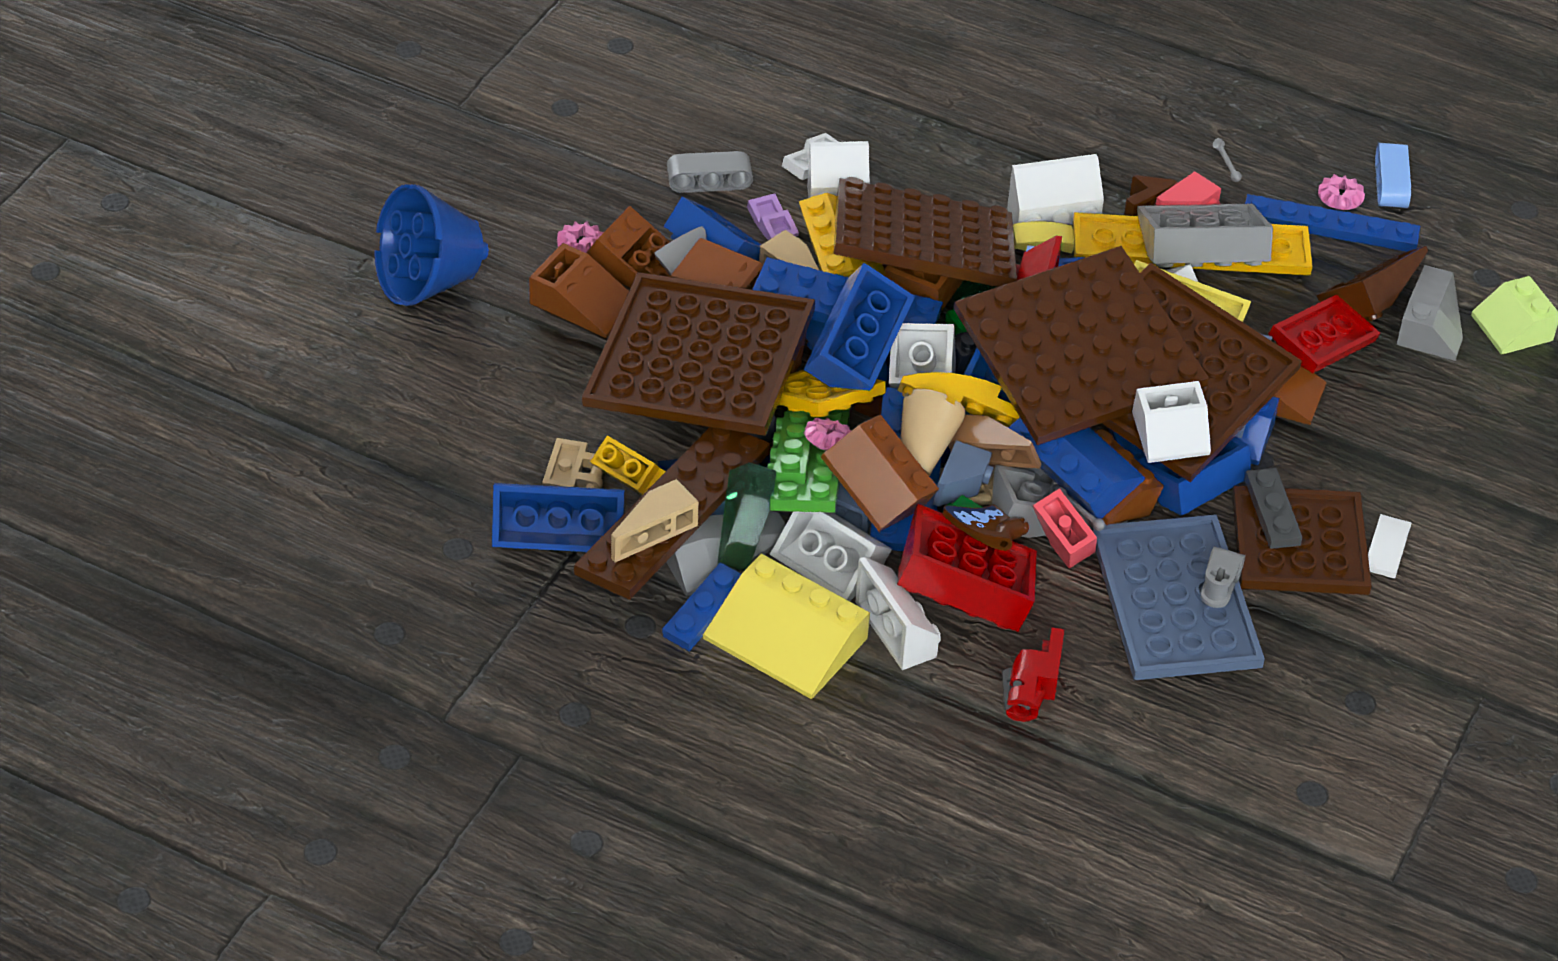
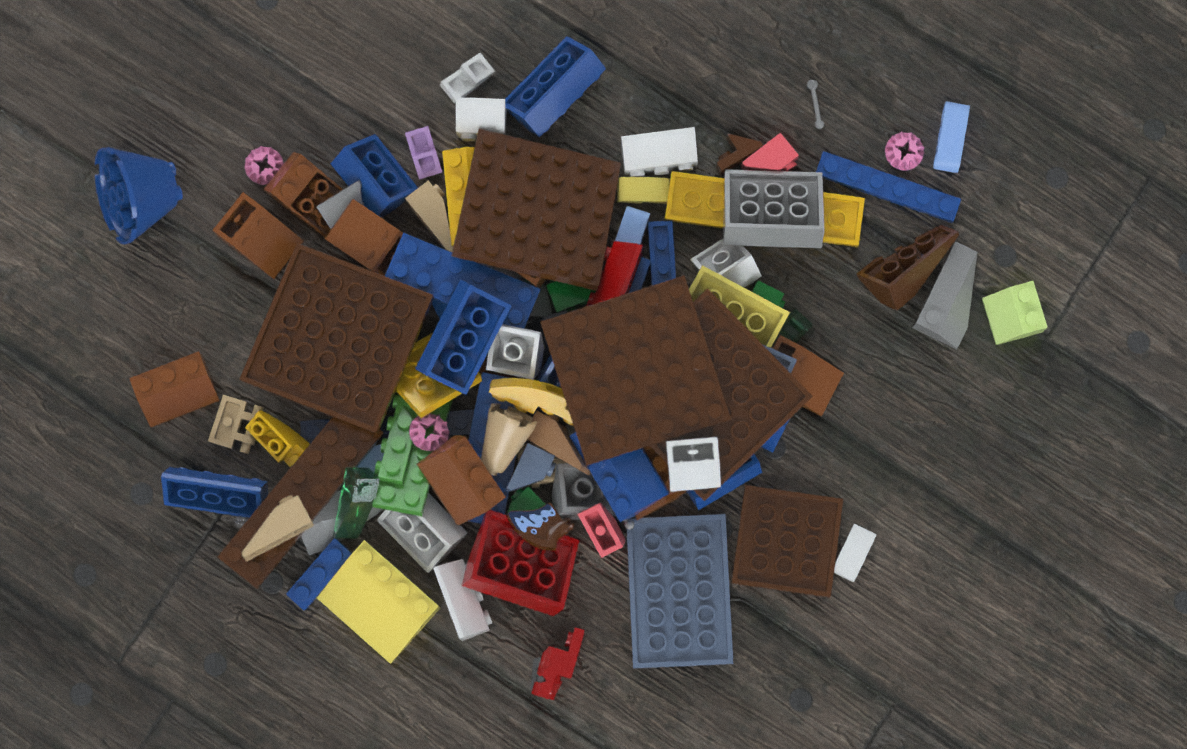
camera: 10 degrees right, 35 degrees up
(493, 436) = (174, 389): none -> dark orange slope
(709, 171) = (377, 95): light grey beam -> none
(924, 150) = (554, 86): none -> blue slope
(1221, 576) = (715, 582): light grey piece -> none
(1273, 508) = (769, 514): dark grey plate -> none
(1324, 333) = (849, 331): red plate -> none

